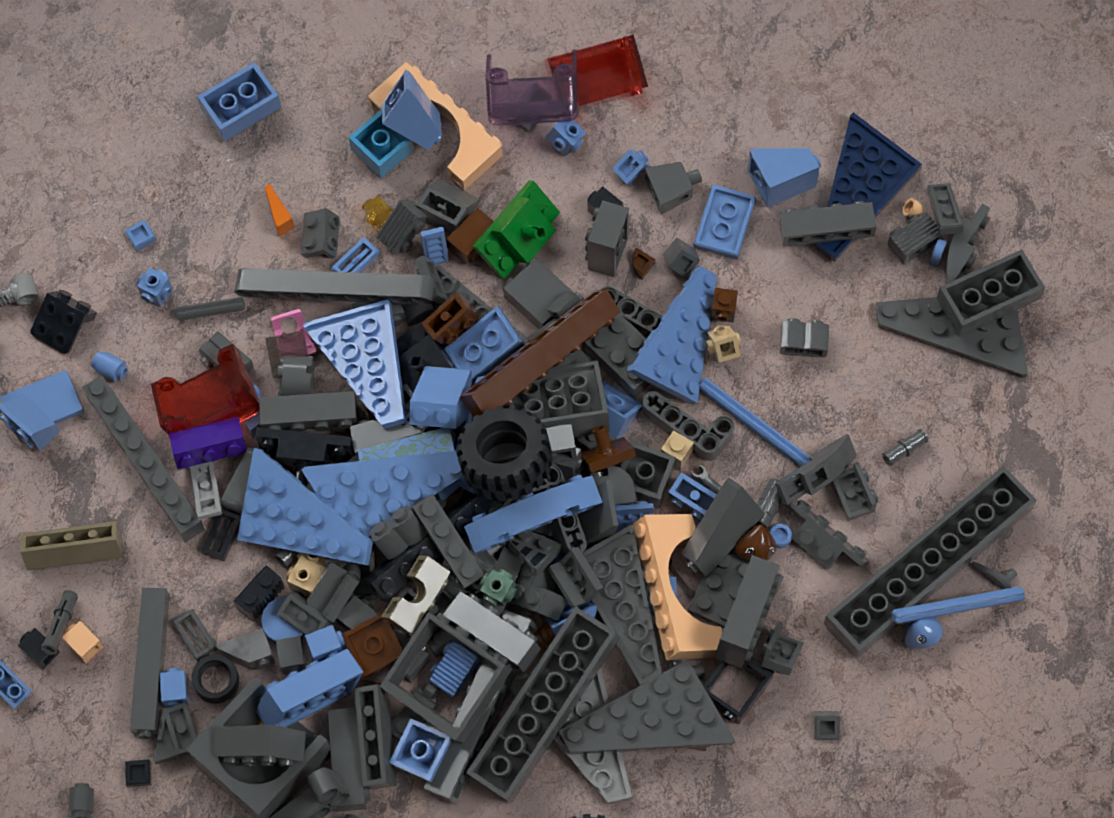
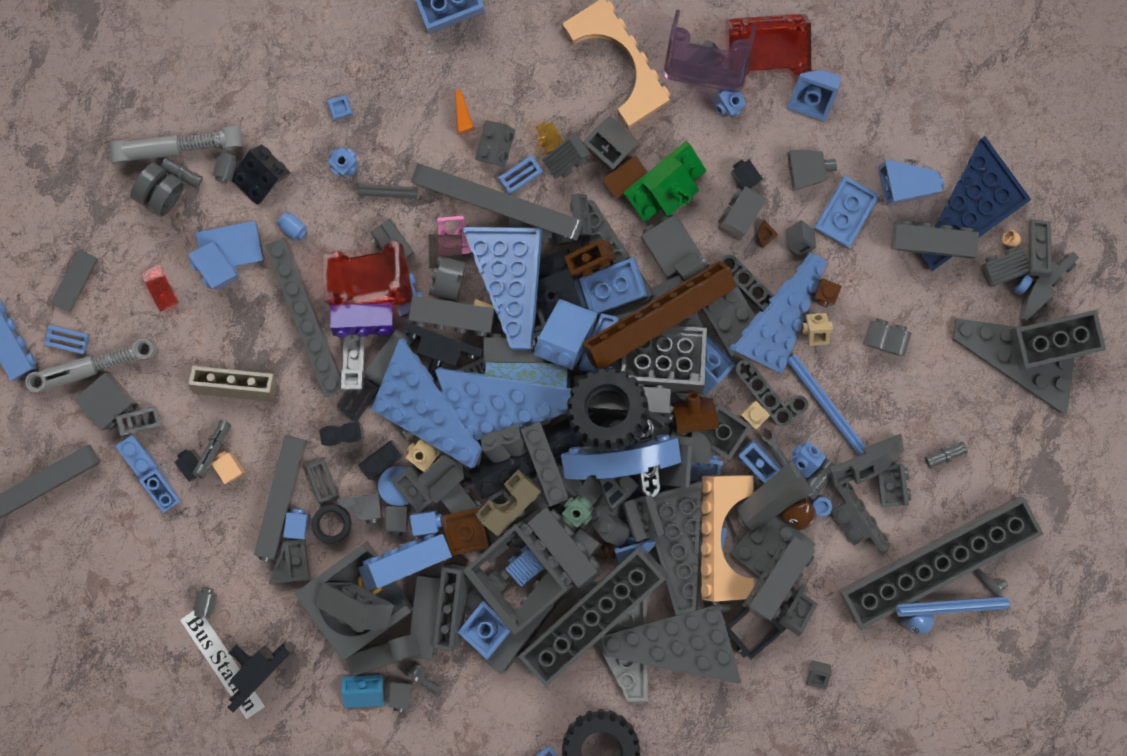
camera: 15 degrees right, 20 degrees up
(22, 321) = (225, 167): none -> dark grey brick
(138, 773) = (255, 587): black tile -> none
(203, 576) = (336, 434): none -> black brick
(379, 145) = (565, 71): dark azure brick -> none
(412, 112) = (597, 53): medium blue slope -> none
(435, 245) = (591, 182): medium blue slope -> none
(631, 166) = (779, 142): medium blue bracket -> none
(657, 110) = (814, 93): none -> medium blue slope
(751, 480) = (807, 458): none -> medium blue brick

